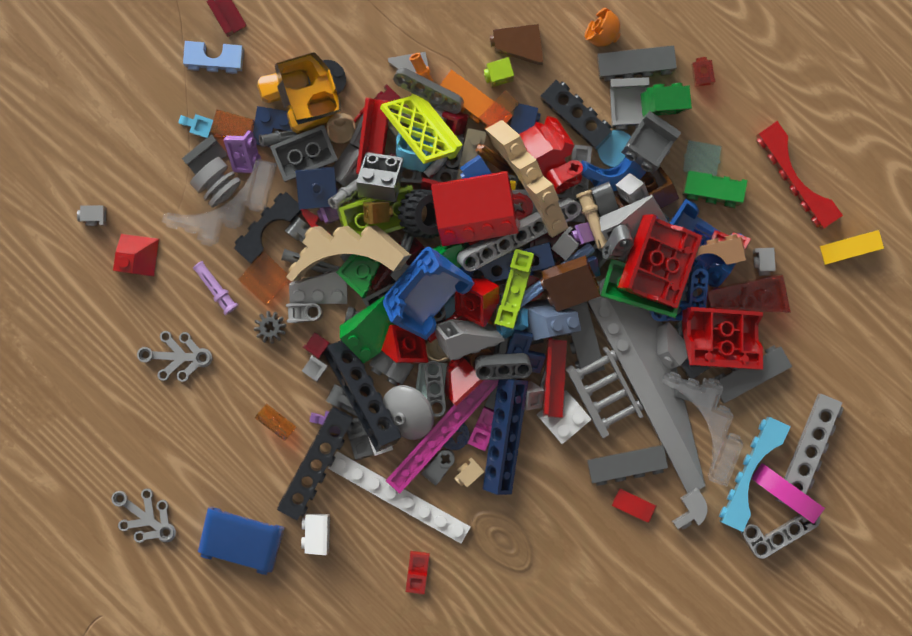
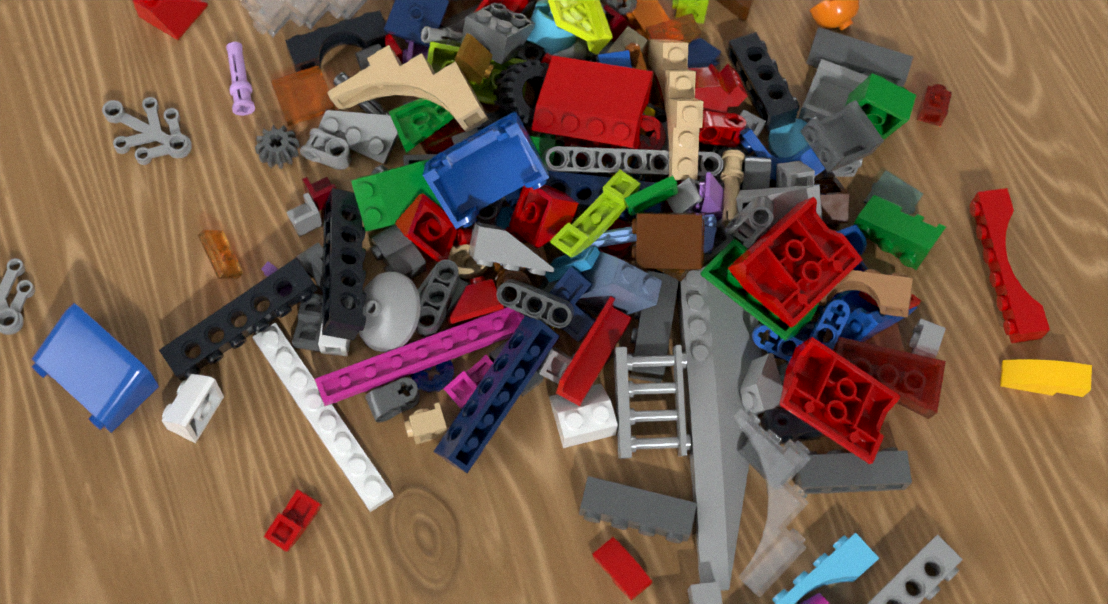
camera: 15 degrees right, 20 degrees down
(545, 259) = (651, 195): none -> green tile

